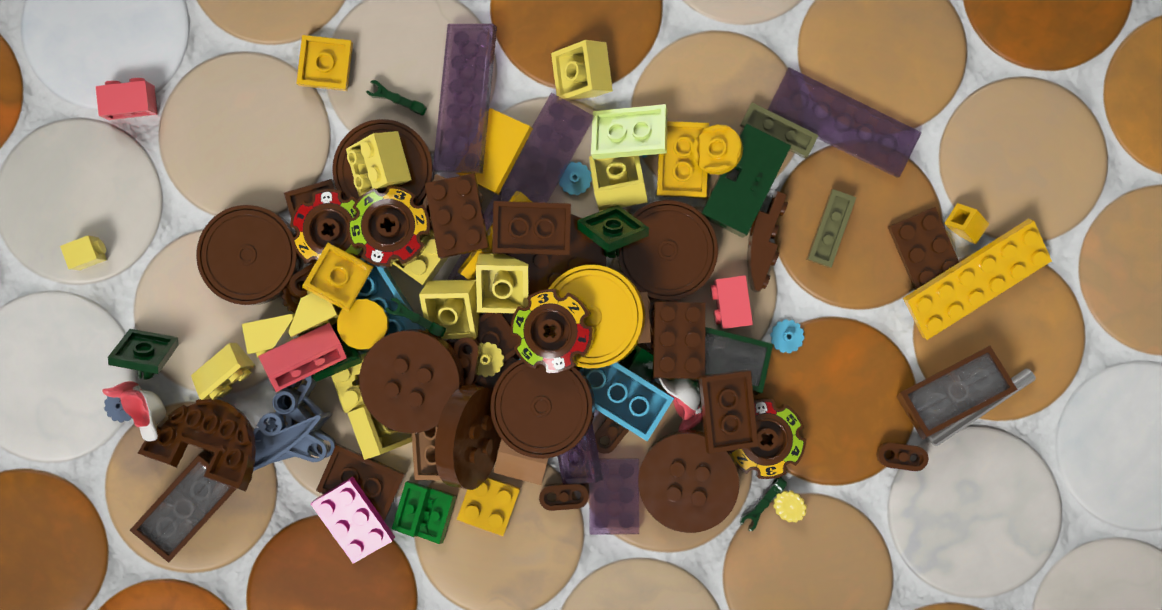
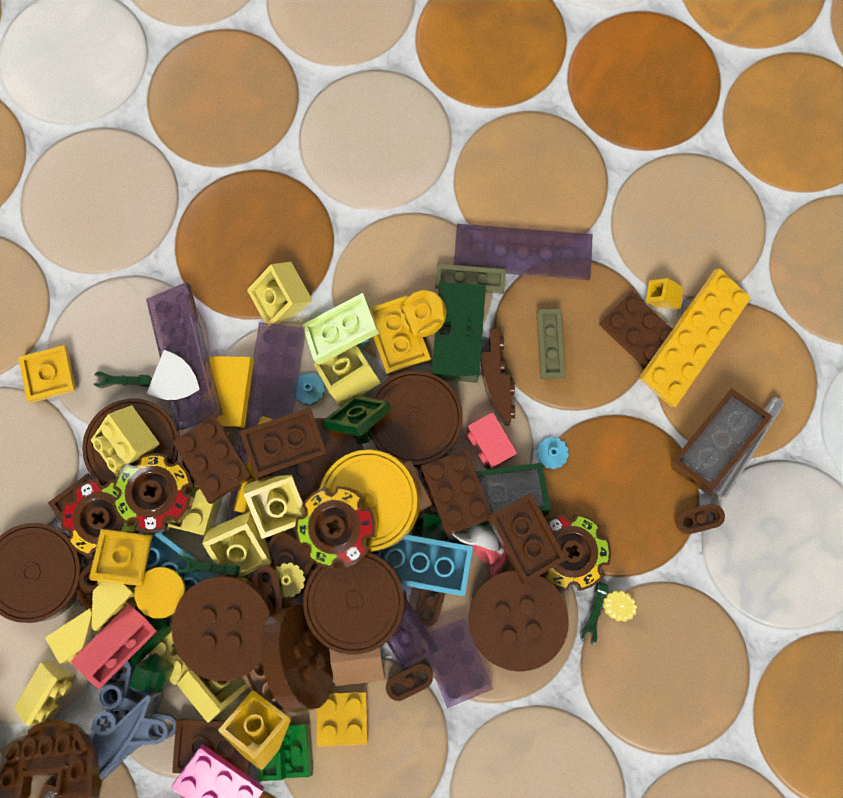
camera: 25 degrees left, 10 degrees down
(328, 396) = (151, 674): none -> dark green brick
(406, 483) = (256, 729): none -> yellow slope
(446, 117) = (172, 378): none -> white sticker

